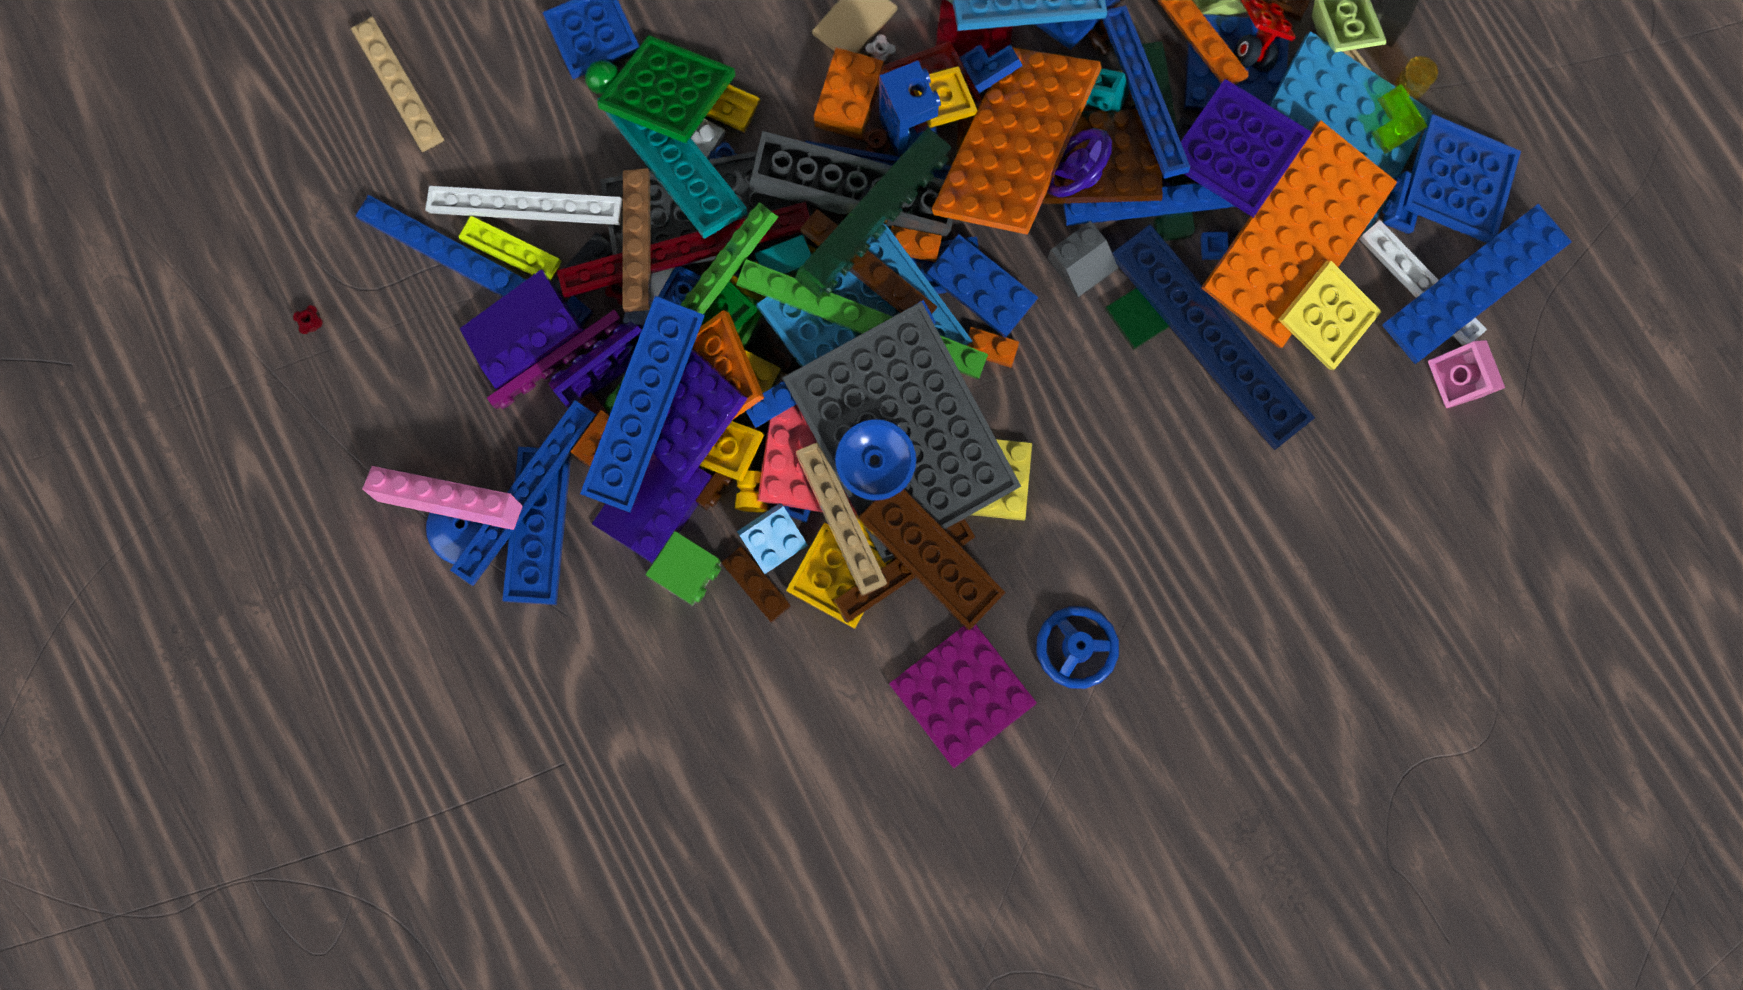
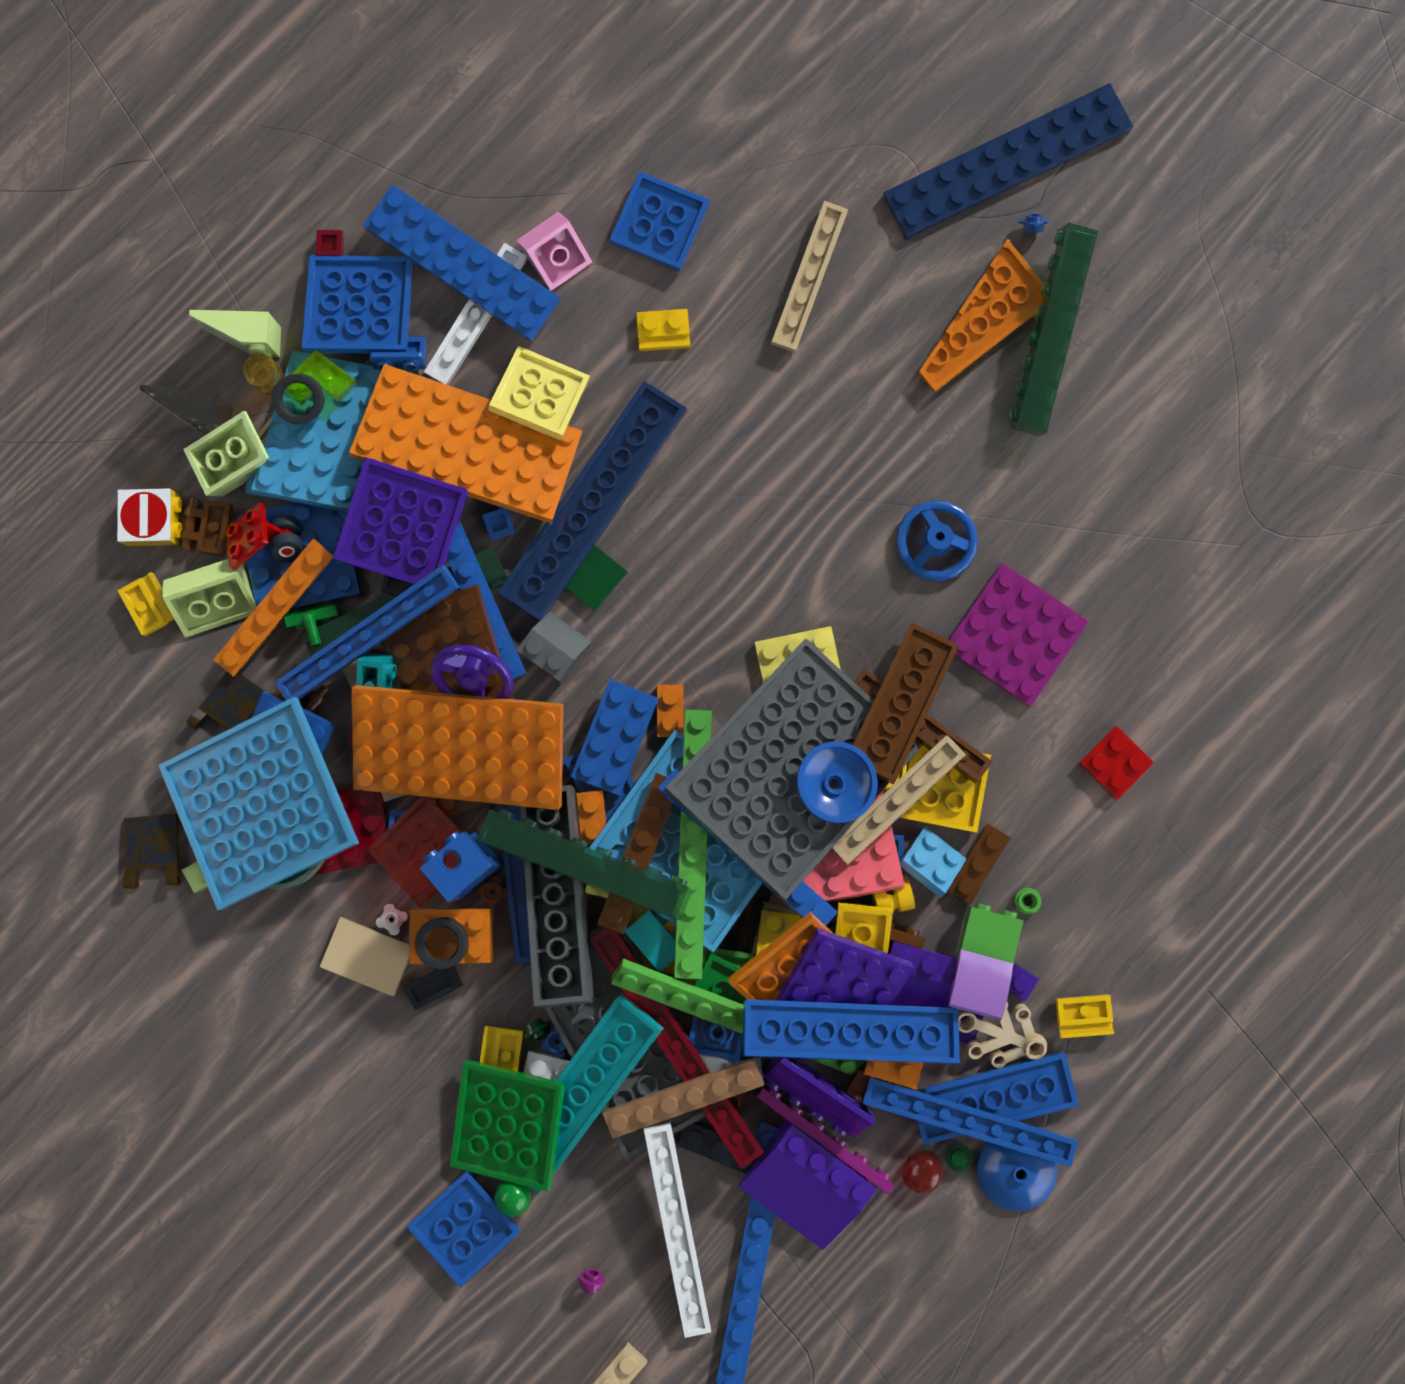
camera: 105 degrees left, 5 degrees up
(443, 497) = (1004, 1200): bright pink brick -> none
(494, 440) = (922, 1172): none -> clear red hair
(496, 476) = (958, 1157): none -> dark green plate
(507, 123) = (591, 1280): none -> magenta plate
(508, 248) = (724, 1229): neon yellow plate -> none
(581, 635) = (1084, 1016): none -> yellow plate
(591, 551) = (1003, 1036): none -> tan plant
(633, 586) = (1022, 982): none -> dark purple plate
(644, 539) = (981, 984): none -> medium lavender slope
(700, 612) = (1035, 904): none -> bright green plate
(740, 141) = (536, 1030): none -> dark green plate
(808, 748) = (1116, 762): none -> red plate
(809, 67) = (433, 986): none -> black tile
(849, 57) = (421, 948): none -> black tyre
(953, 94) = (430, 829): yellow plate -> none
(986, 70) = (390, 798): blue plate -> none
(1176, 49) = (307, 617): none -> green plate
(1257, 830) = (1053, 329): none -> clear green brick
(1292, 780) = (994, 310): none -> orange wing
(1360, 453) = (663, 330): none -> yellow plate
(1371, 850) = (1033, 223): none -> blue plate
(1376, 609) = (809, 276): none -> tan plate
(1384, 75) = (286, 415): none -> black tyre
(1444, 850) = (1007, 161): none -> dark blue plate
(1461, 75) = (247, 330): none -> yellowish green slope
(1470, 482) = (659, 221): none -> blue plate
(1528, 173) = (330, 242): none -> dark red plate

